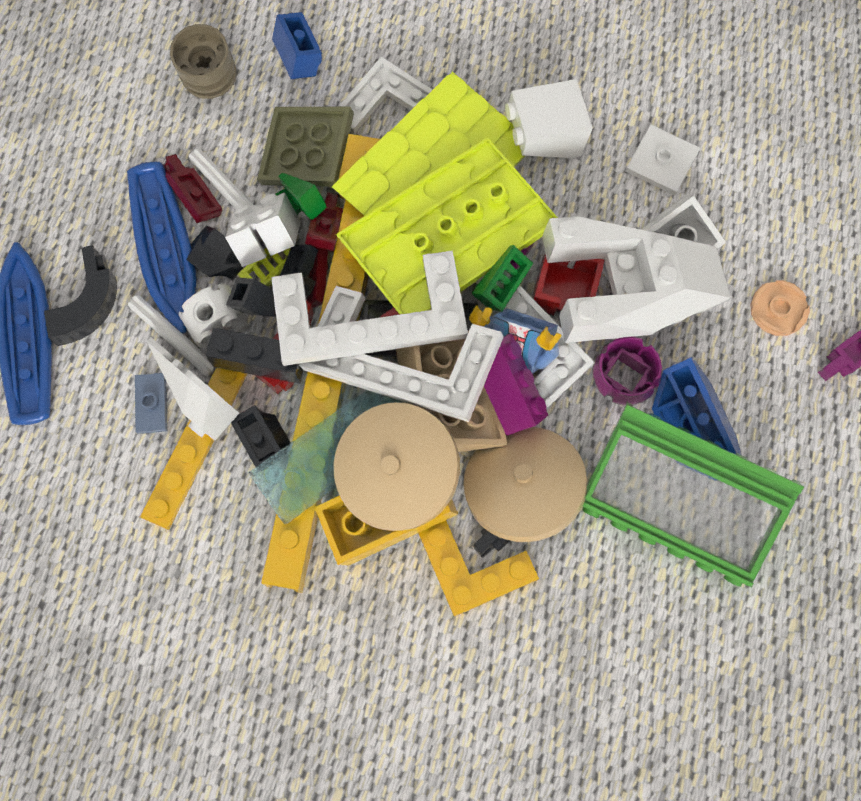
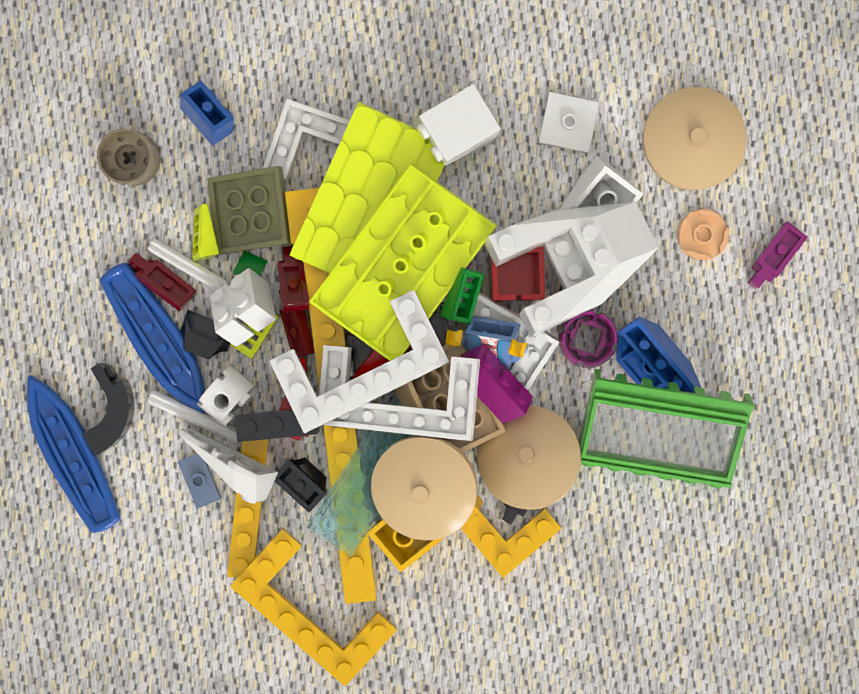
camera: 15 degrees left, 15 degrees up
(230, 657) = (338, 661): none -> yellow plate
(249, 162) = (203, 235): none -> neon yellow slope
(256, 298) = (260, 376): black arch -> none
(304, 195) = (266, 267): green slope -> none
(792, 211) = (694, 138): none -> tan dish

